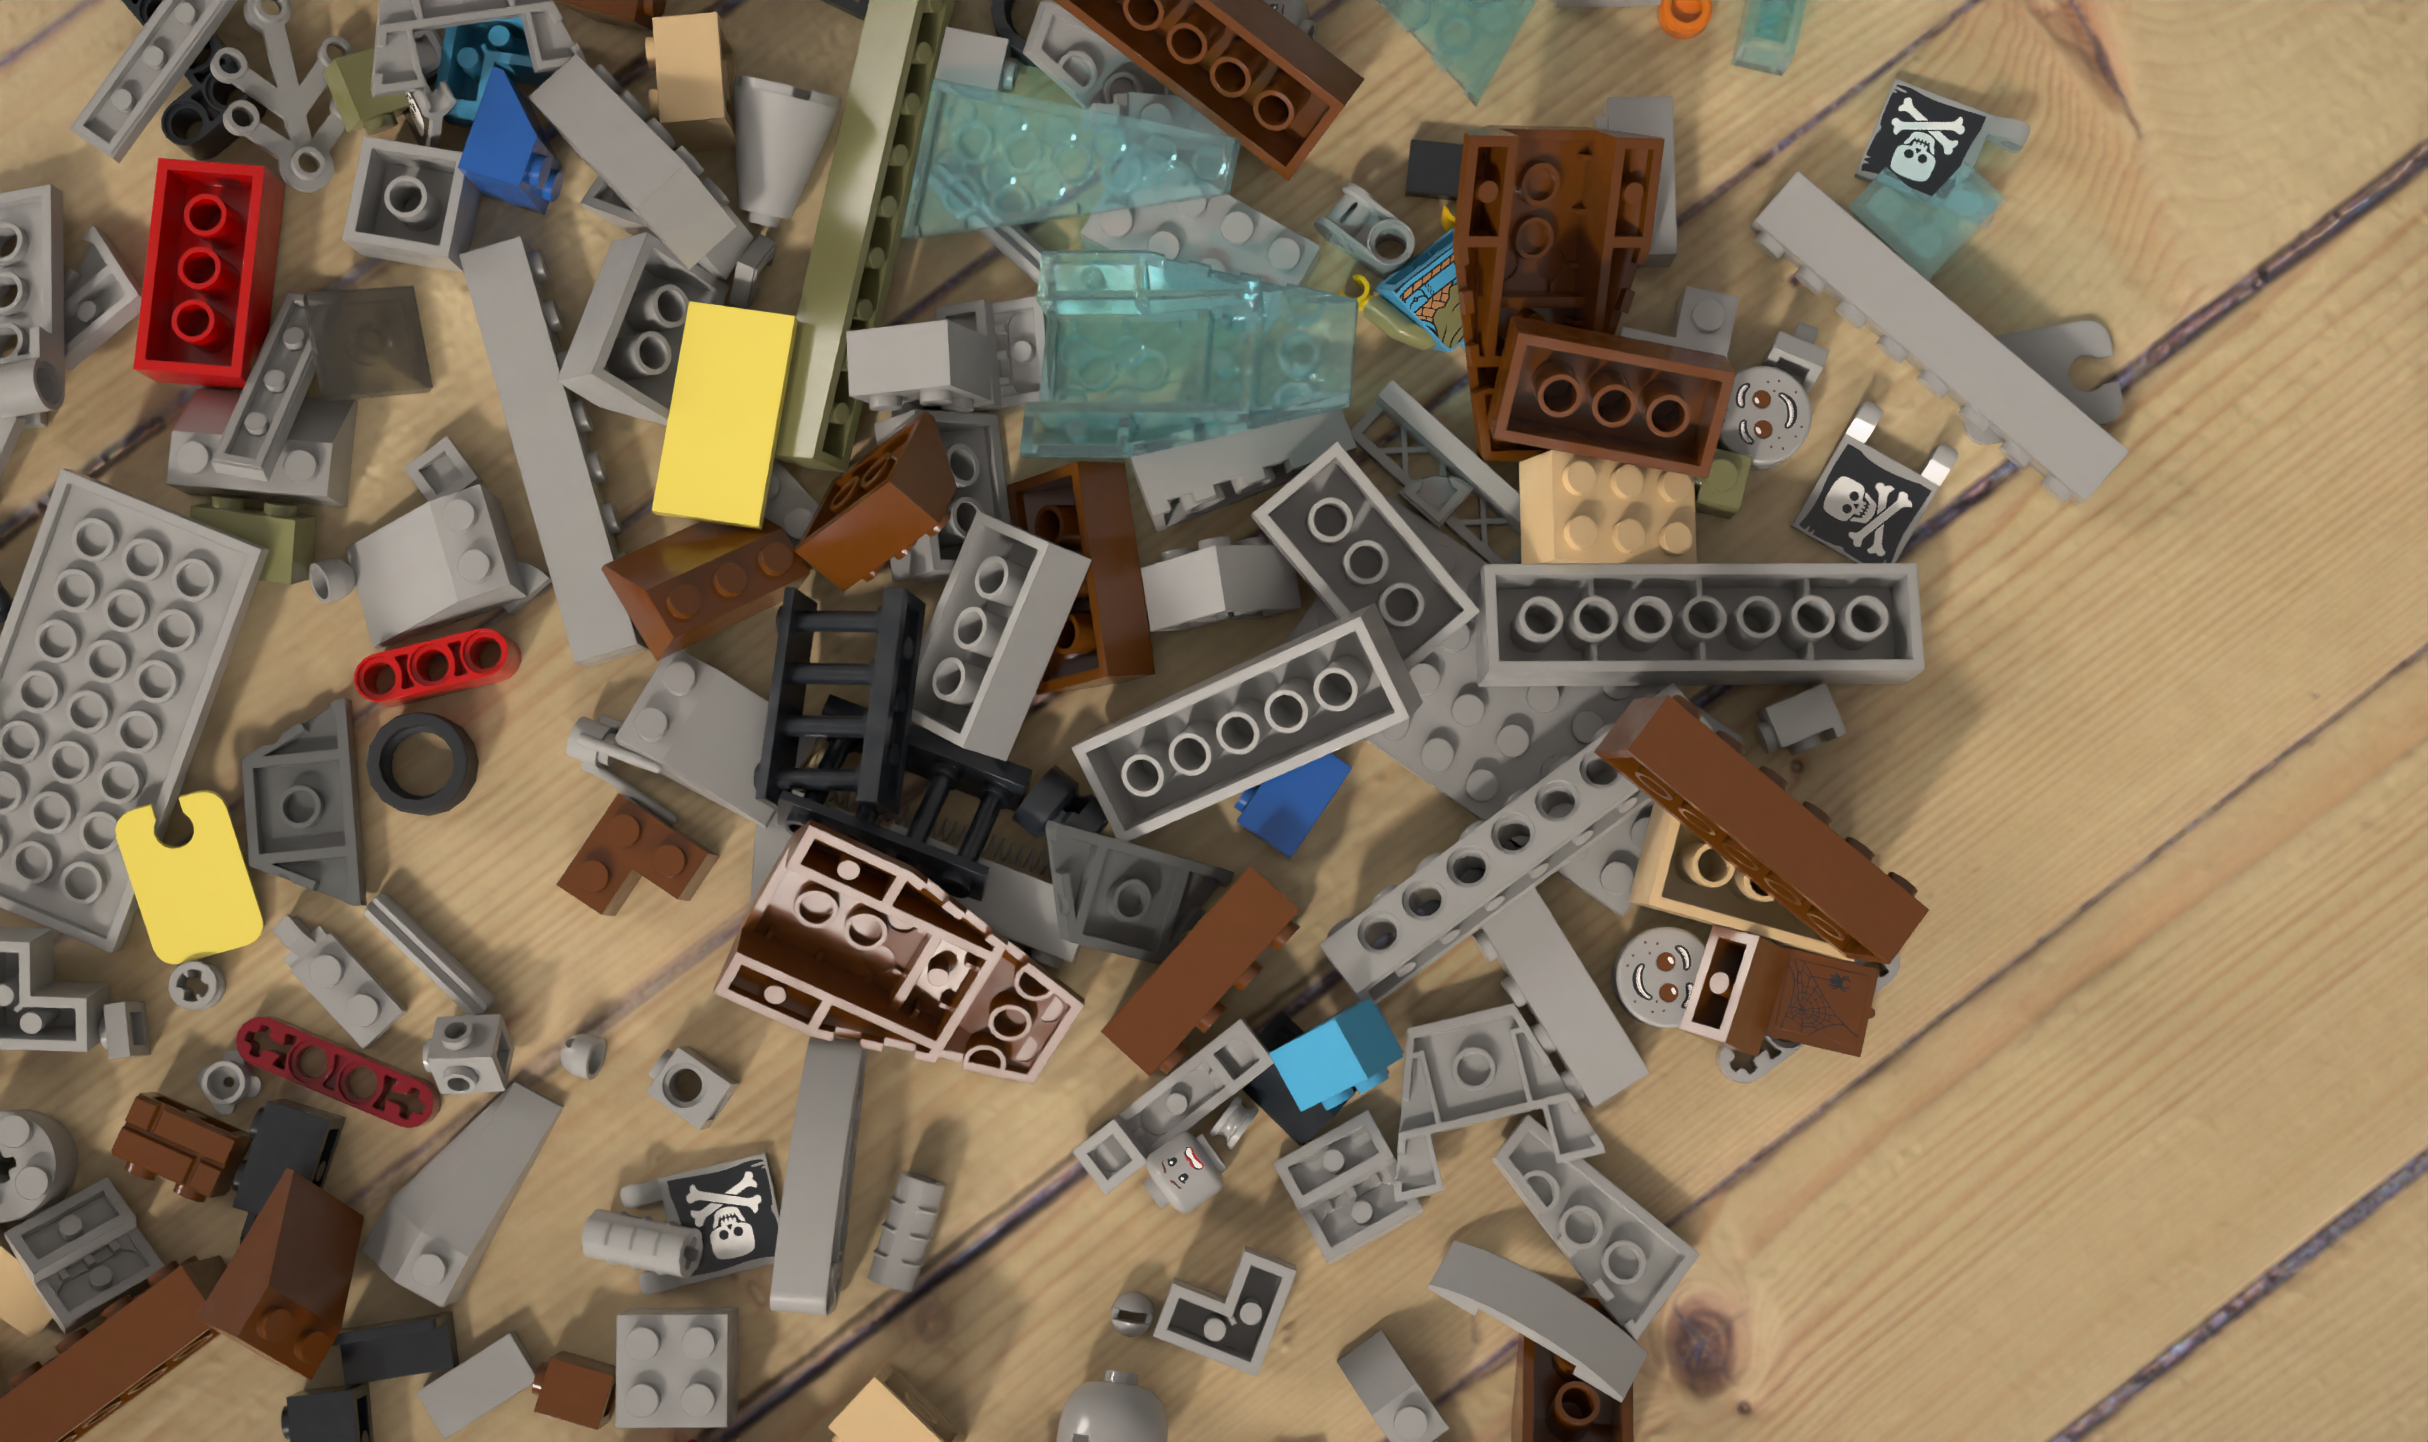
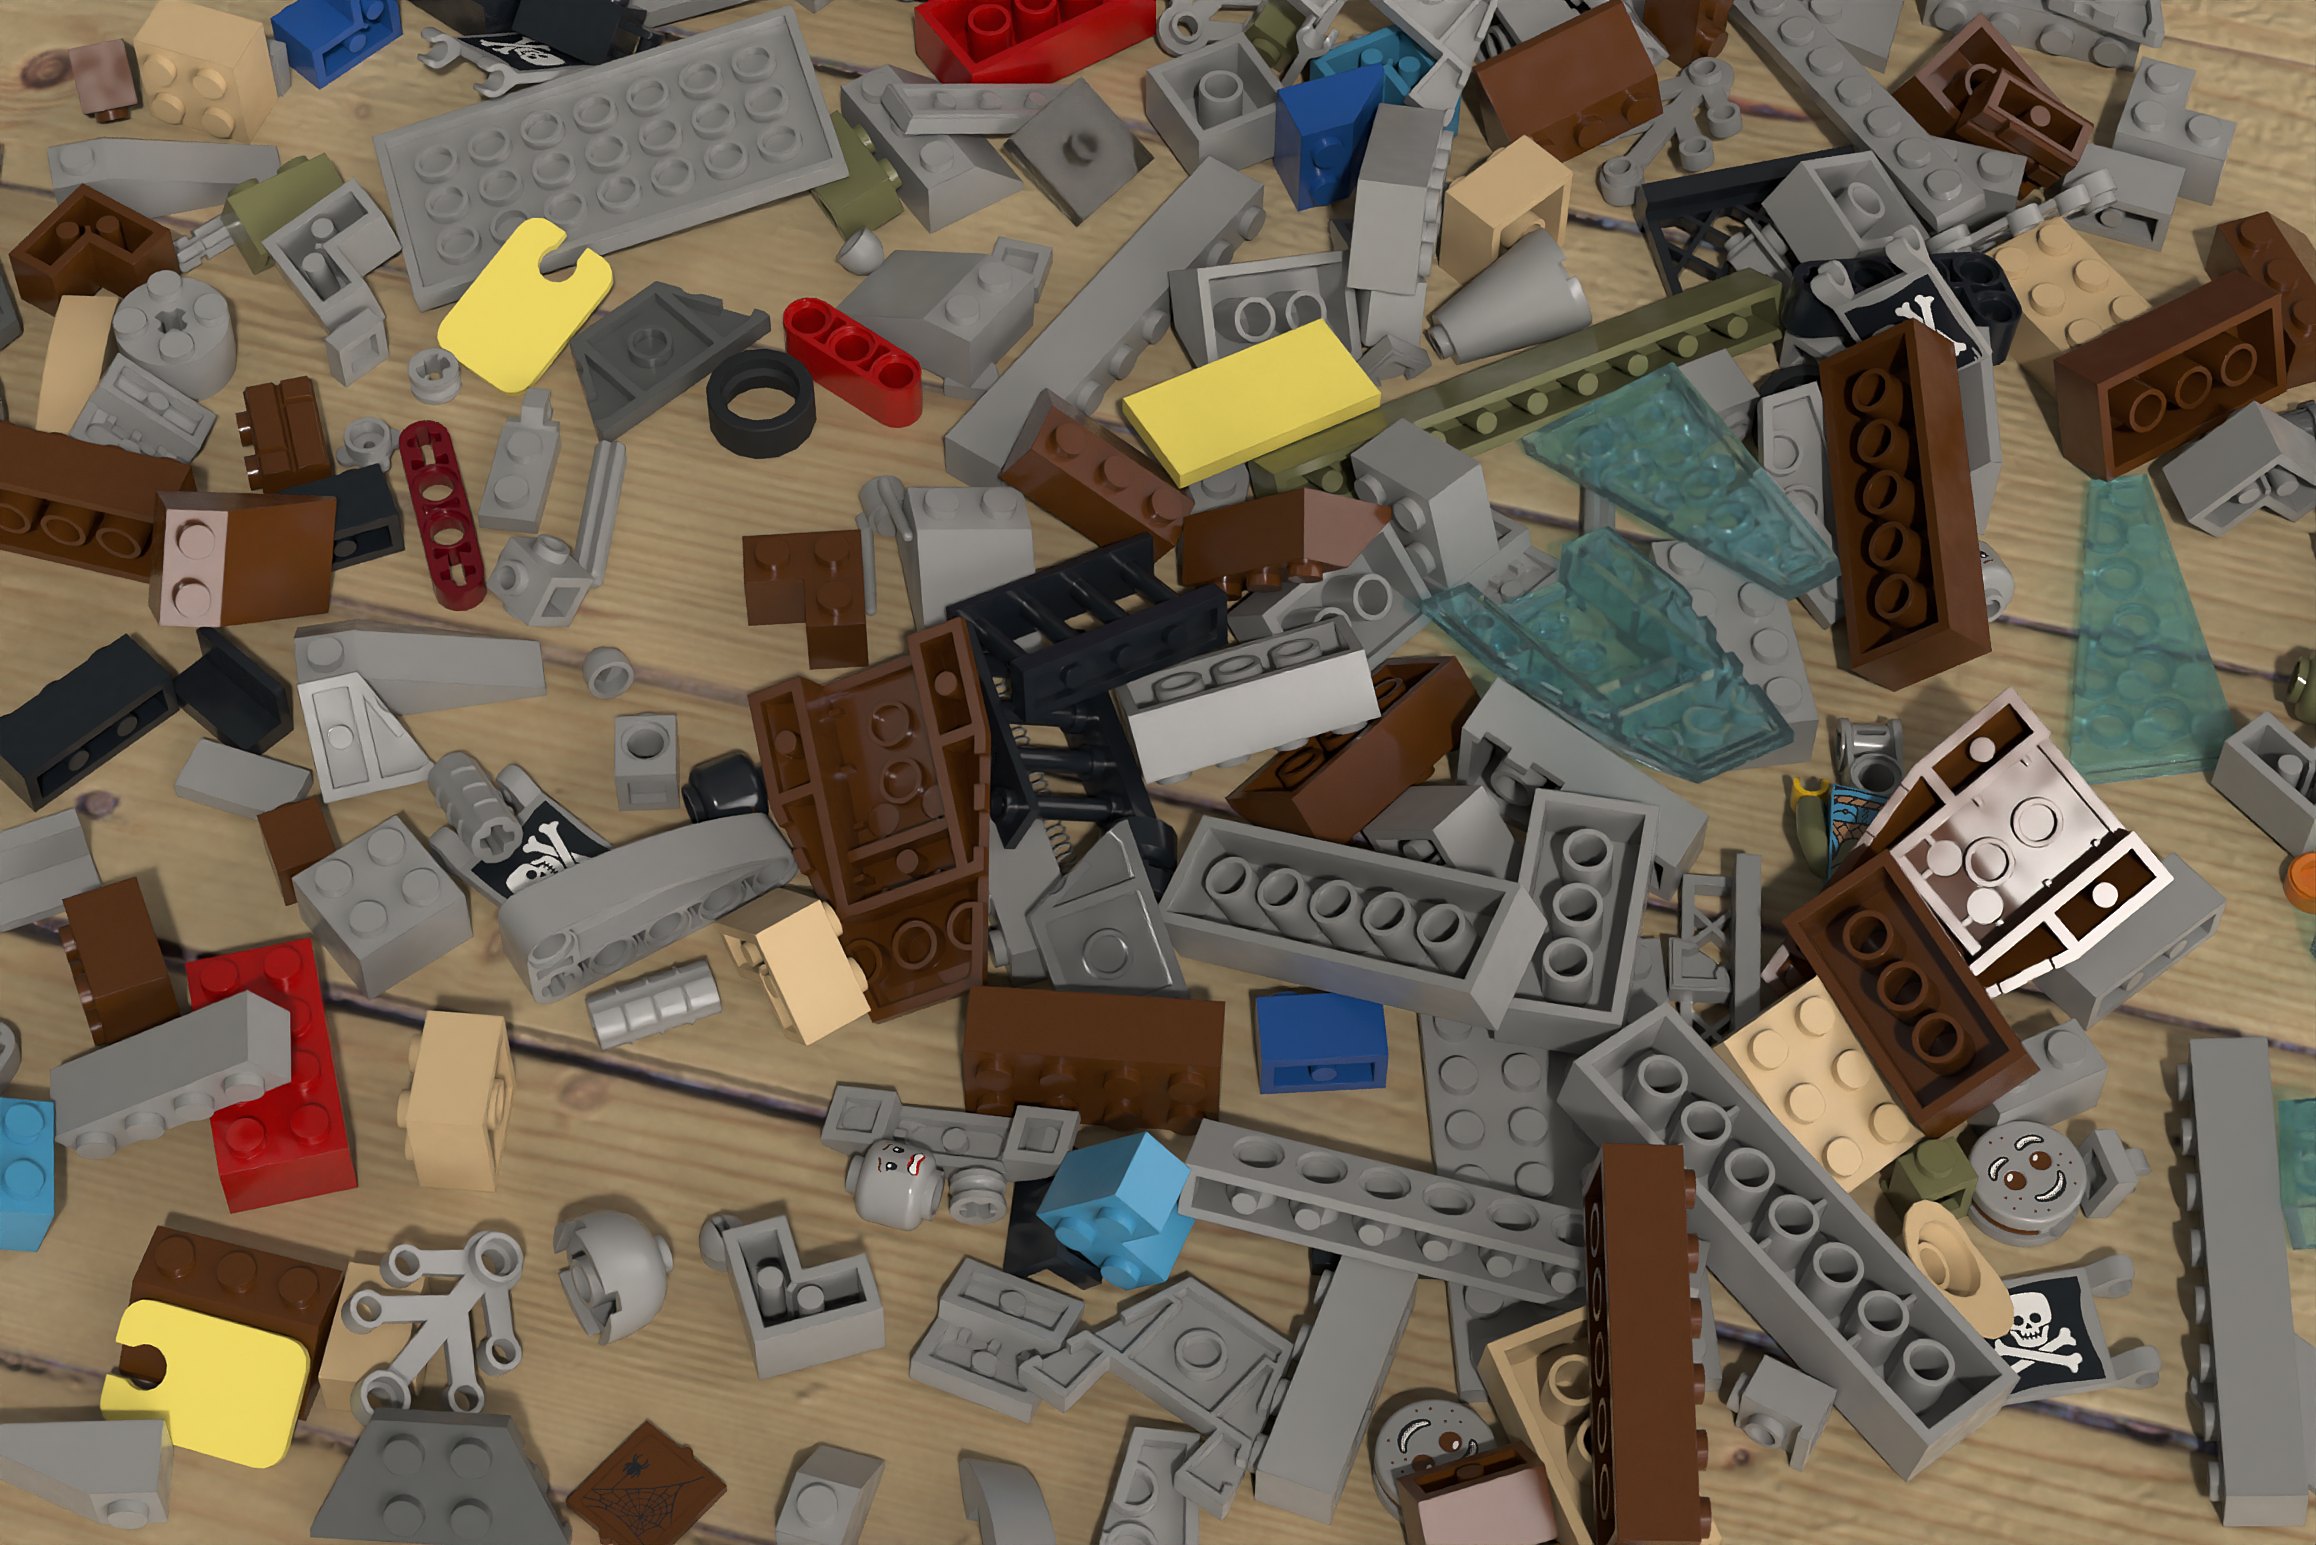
camera: 45 degrees right, 30 degrees down
(515, 1286) = (357, 739): none -> light grey wing
(766, 1052) = (725, 789): none -> black head
(955, 1113) = (795, 955): none -> tan brick
(1794, 529) = (1956, 1268): none -> tan piece

